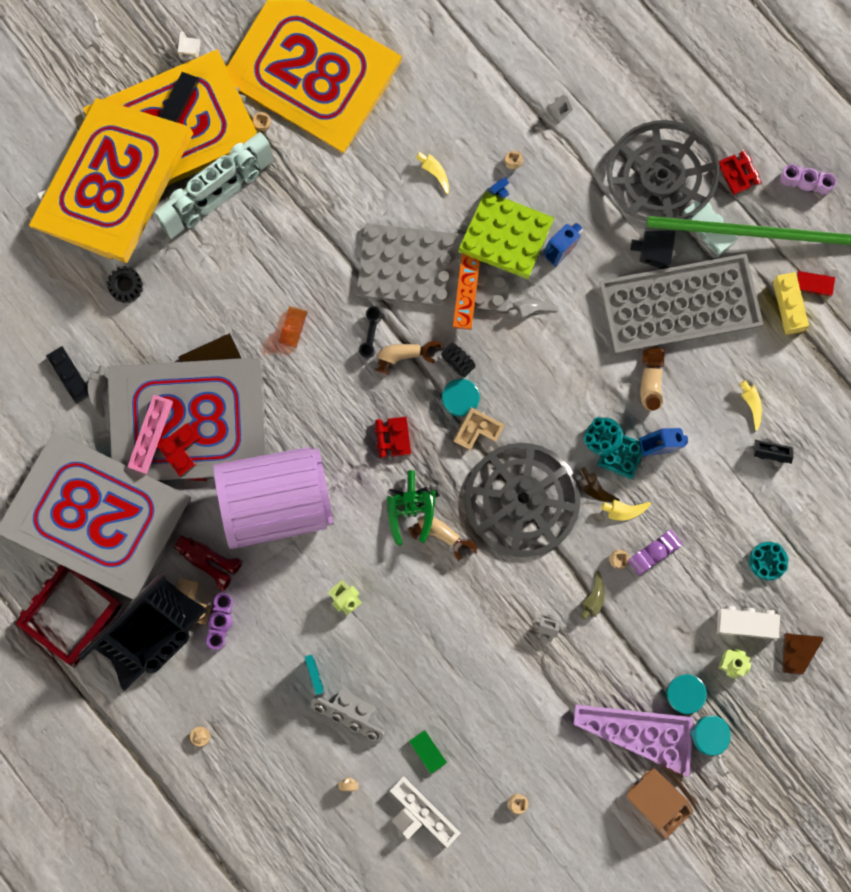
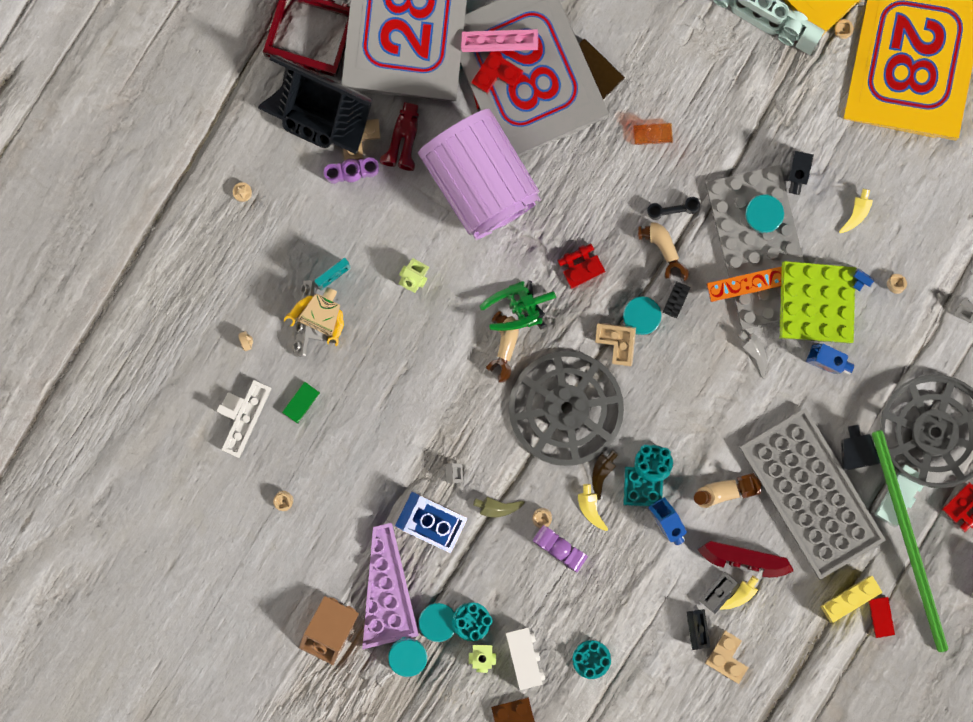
camera: 70 degrees right, 5 degrees up
(349, 702) = (320, 314): none -> torso
(373, 201) = (802, 162): none -> black torso
(407, 251) = (764, 213): none -> teal tile
(587, 667) = (431, 522): none -> blue slope
(696, 661) = (471, 621): none -> teal tile
(709, 405) = (771, 565): none -> dark red brick
(745, 419) = (719, 592): none -> plate
(807, 440) = (722, 659): none -> tan plate

